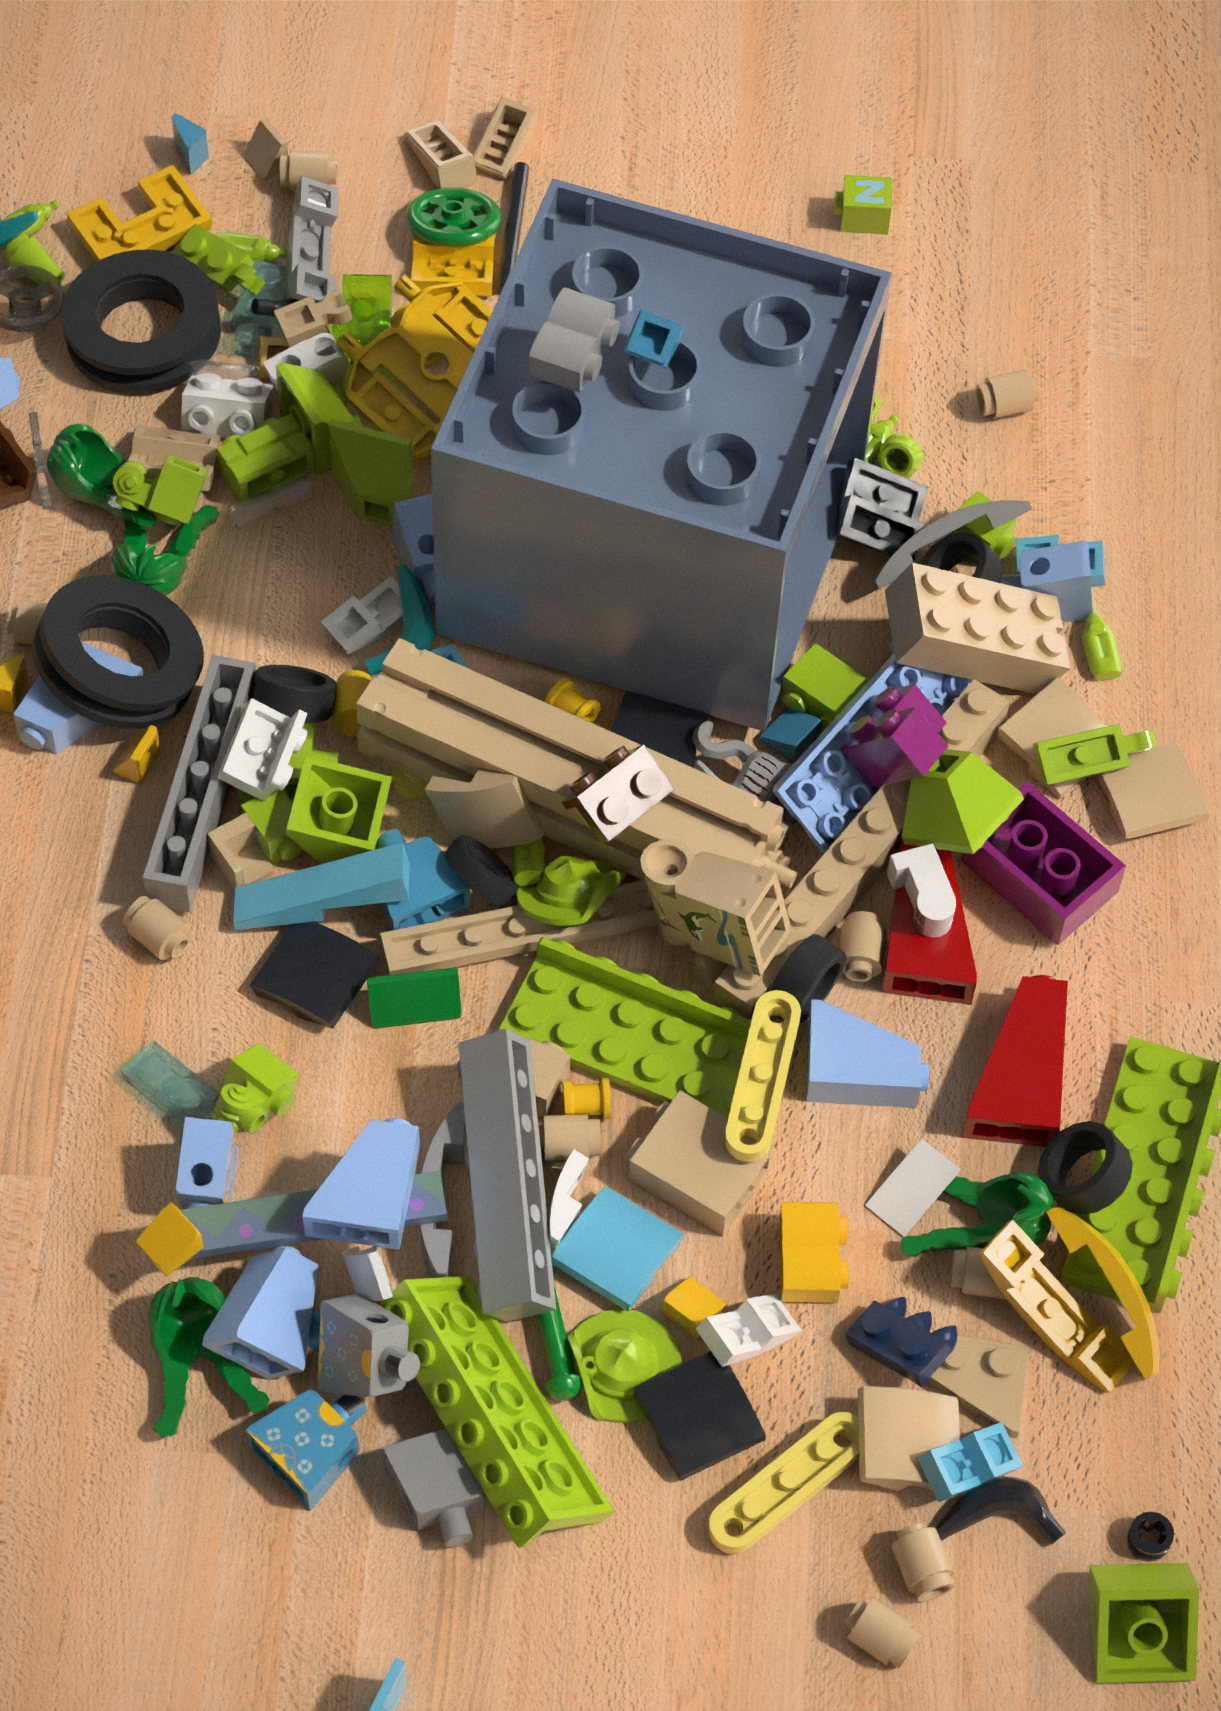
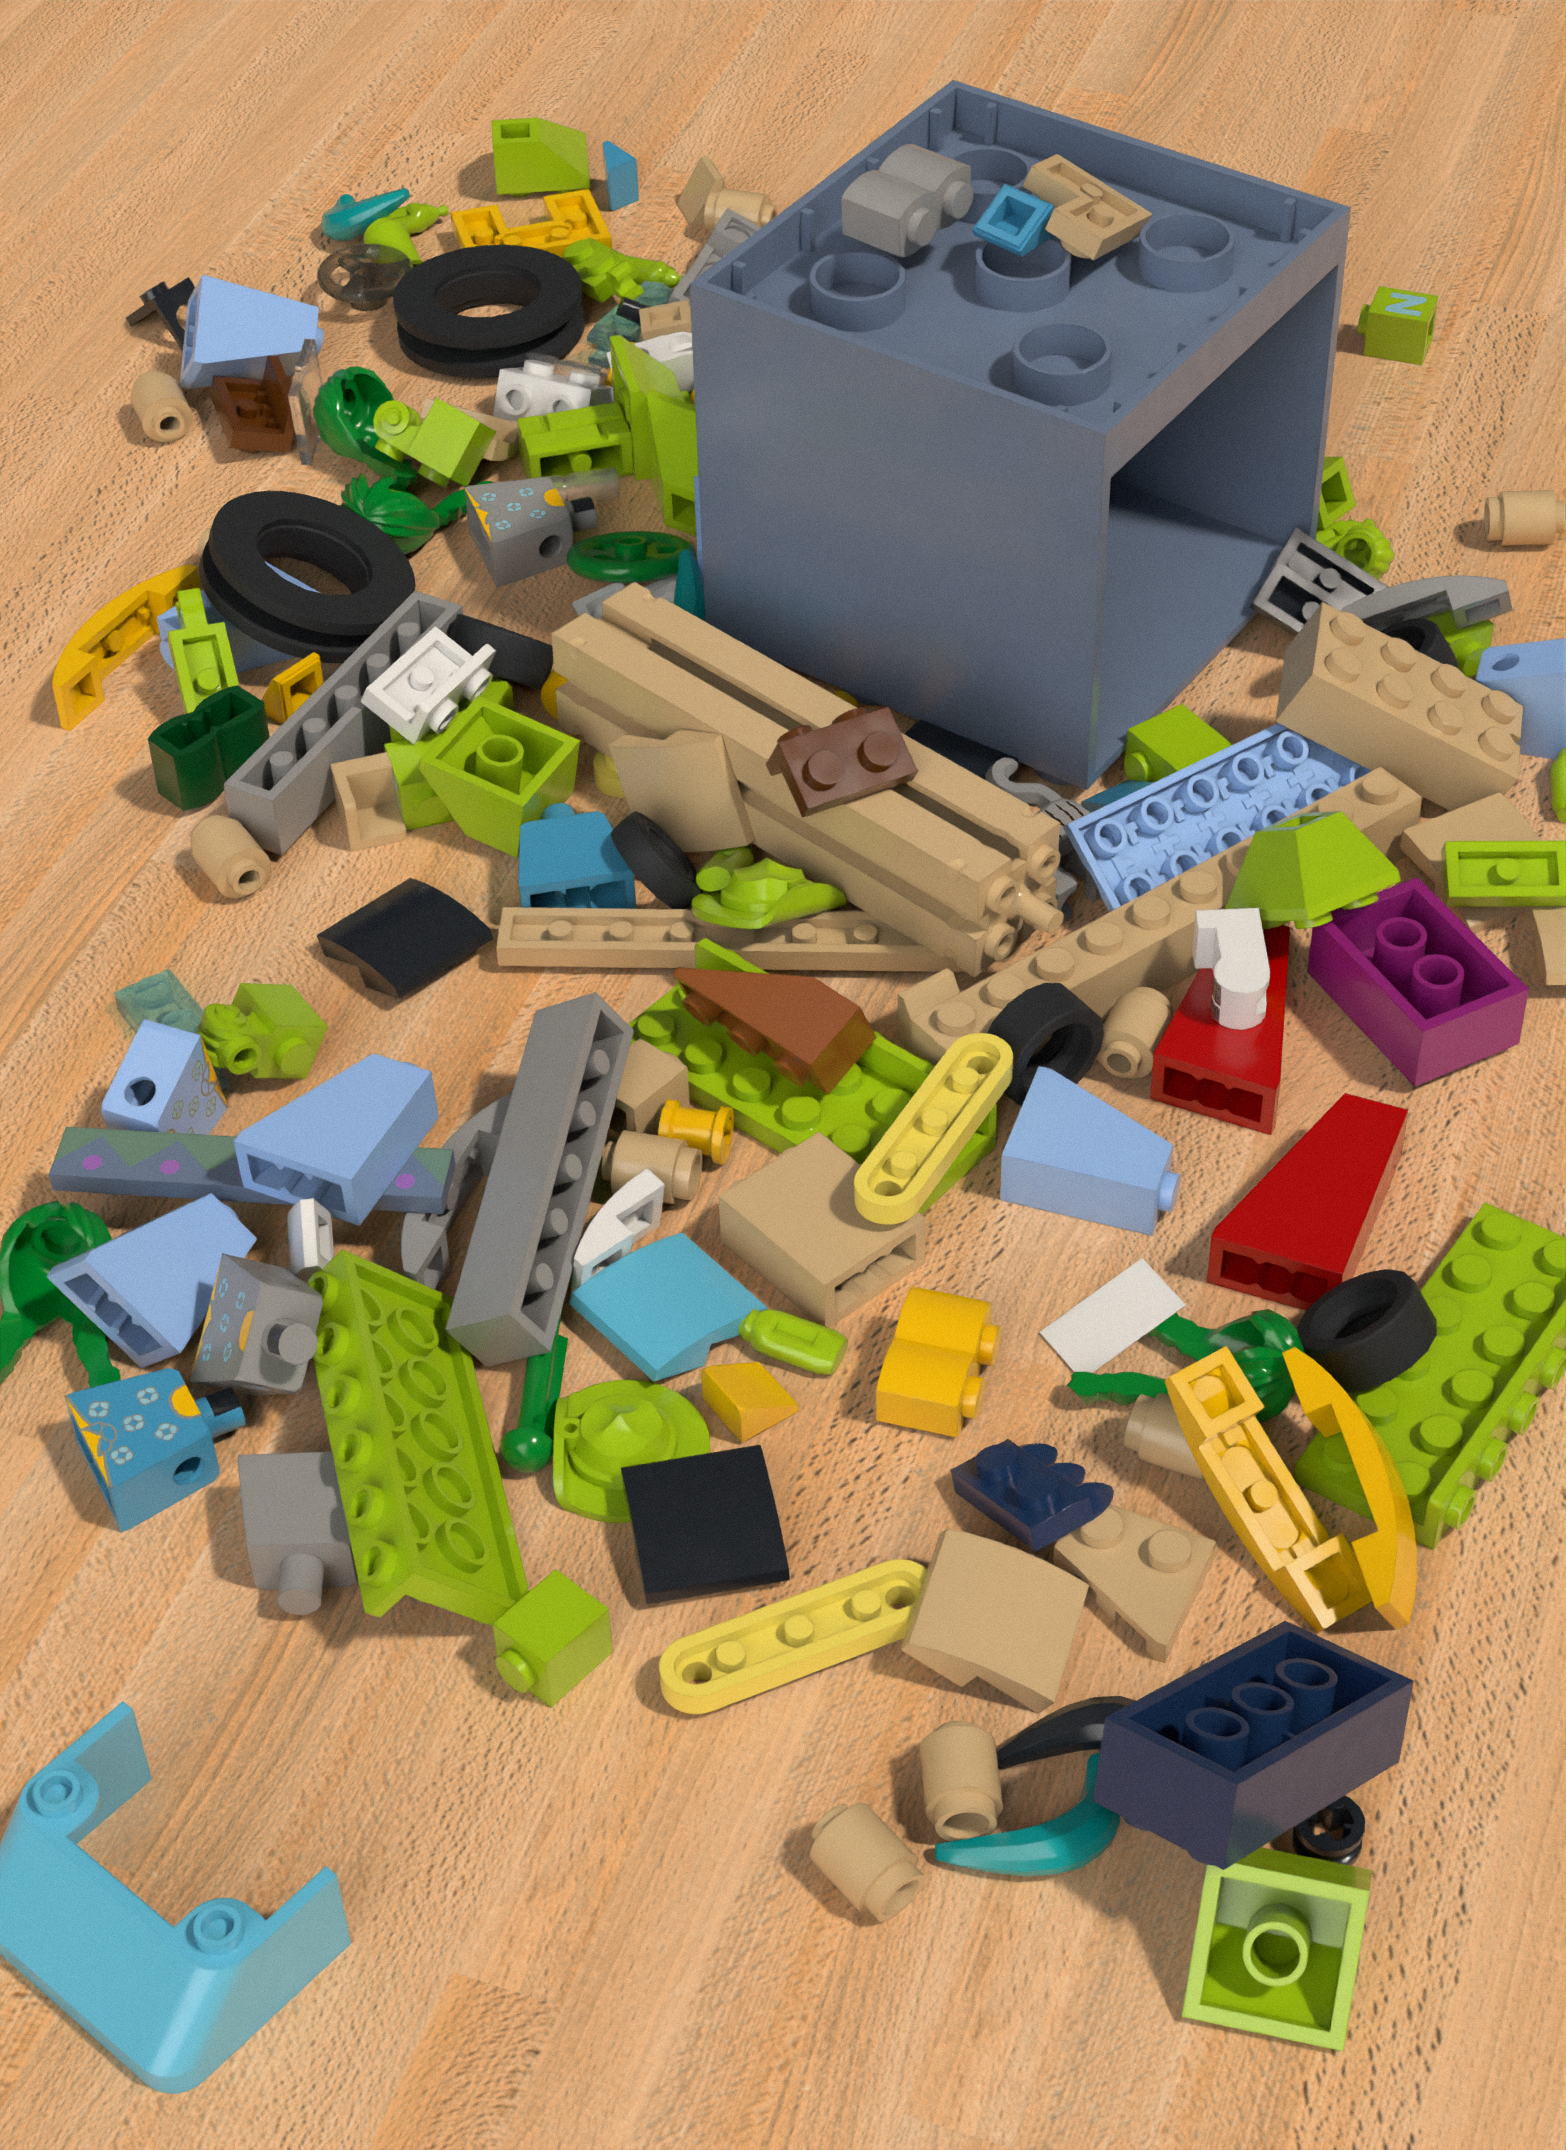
camera: 20 degrees right, 15 degrees down
(72, 759) = (199, 652): none -> lime plate
(107, 831) = (206, 747): none -> dark green brick
(116, 134) = (538, 157): none -> lime slope
(170, 1240) = (64, 1151): yellow slope -> none
(255, 551) = (524, 526): none -> light grey torso
(304, 894) = (422, 851): medium azure slope -> none
(351, 567) = (627, 556): none -> green plate
(414, 998) = (513, 979): green slope -> none
(633, 1002) = (789, 1017): none -> dark orange slope
(633, 1526) = (552, 1638): none -> lime brick
(708, 1254) = (794, 1340): none -> lime piece
(710, 310) = (1086, 211): none -> tan plate
(716, 904) = (935, 914): tan piece -> none
(749, 1331) = (820, 1439): white slope -> none
(896, 738) = (1244, 791): magenta brick -> none
(970, 1462) = (1076, 1664): medium azure slope -> none
(990, 1590) = (1045, 1848): none -> teal piece
(1104, 1504) = (1251, 1743): none -> dark blue brick

